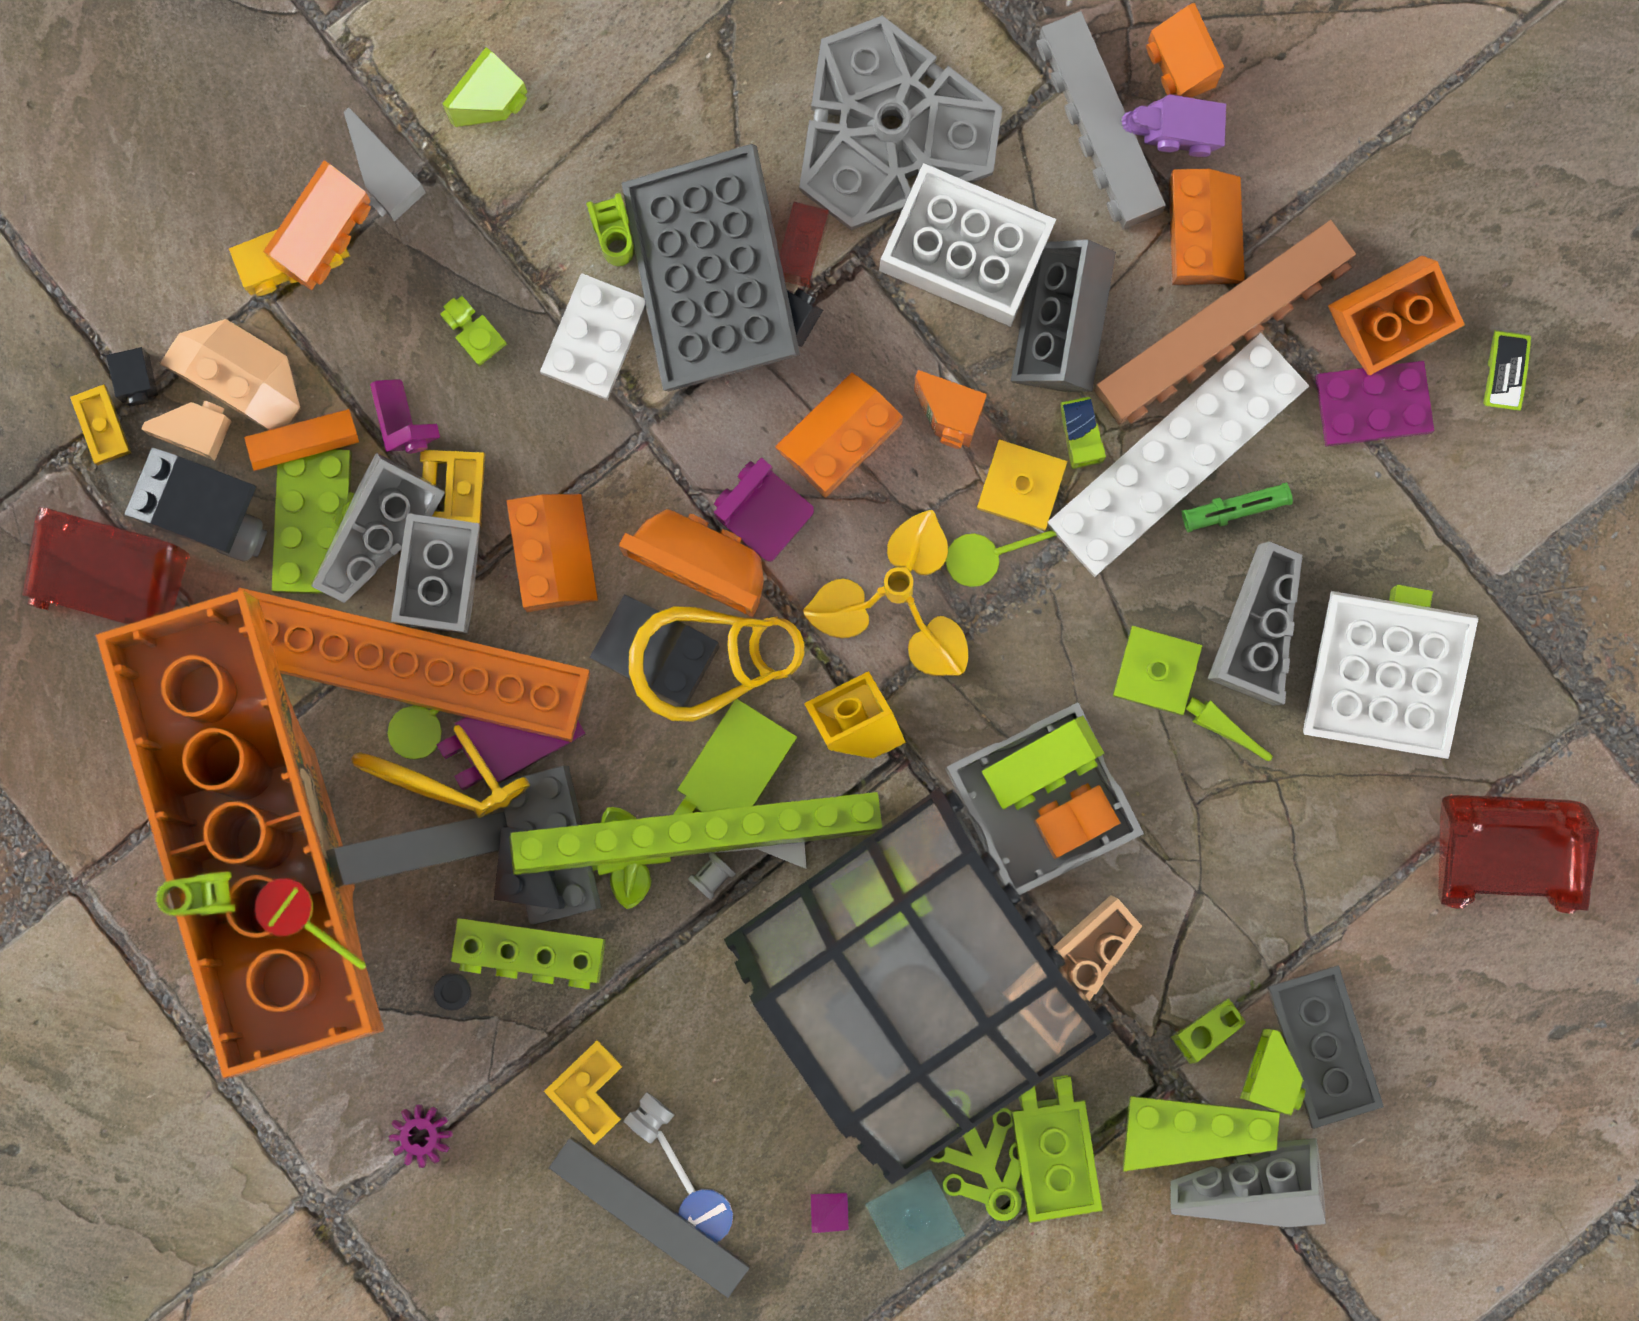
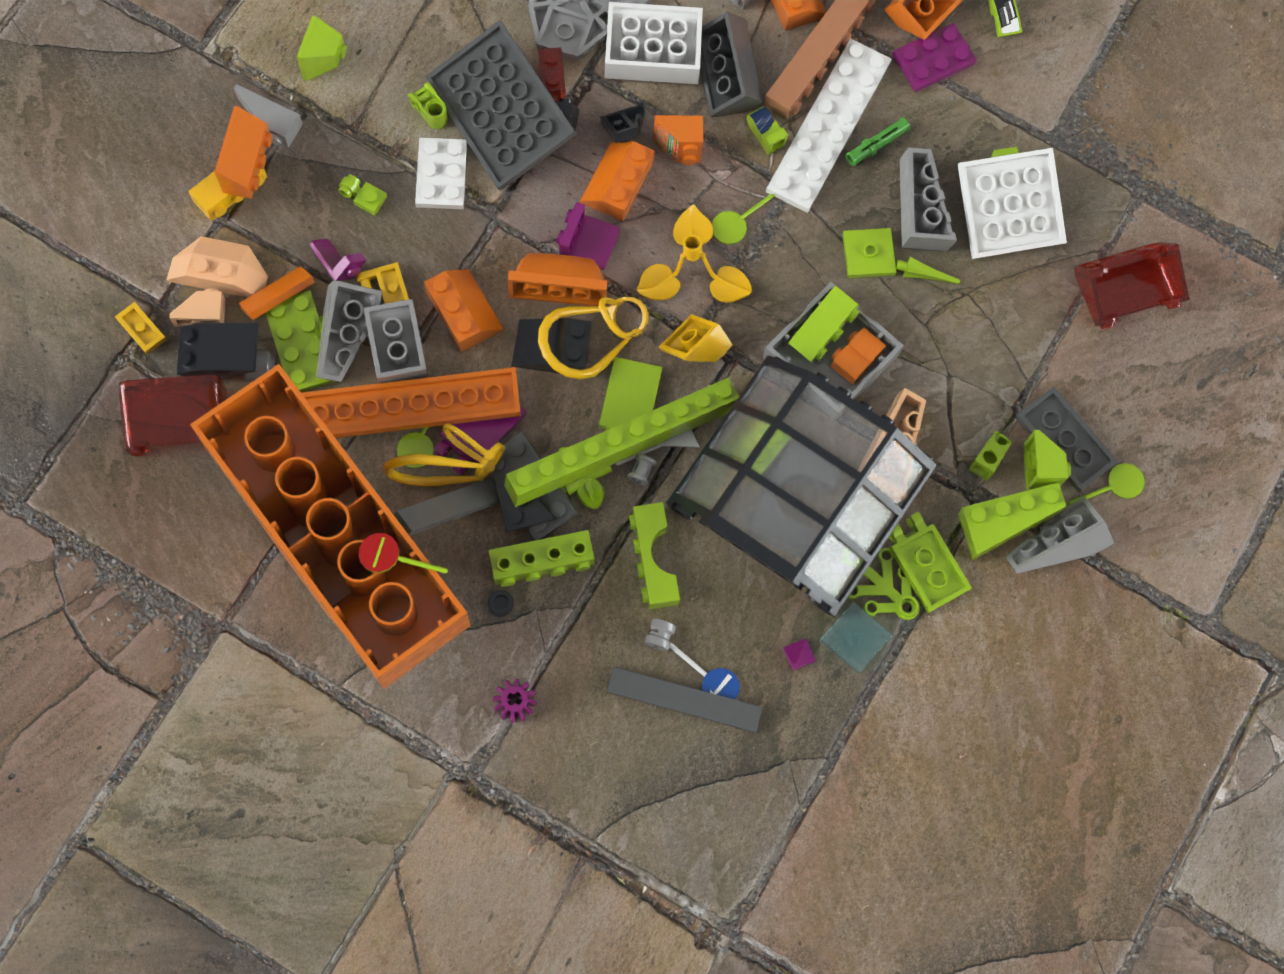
camera: 30 degrees left, 10 degrees down
(132, 376) = (151, 291): black brick -> none
(199, 895) = (320, 562): lime piece -> none
(577, 1092) = (607, 634): yellow plate -> none
(673, 1051) = (660, 587): none -> lime arch
(879, 355) = (624, 123): none -> black wing
(1022, 485) = (742, 172): yellow plate -> none
(1384, 1134) = (1123, 480): none -> lime piece

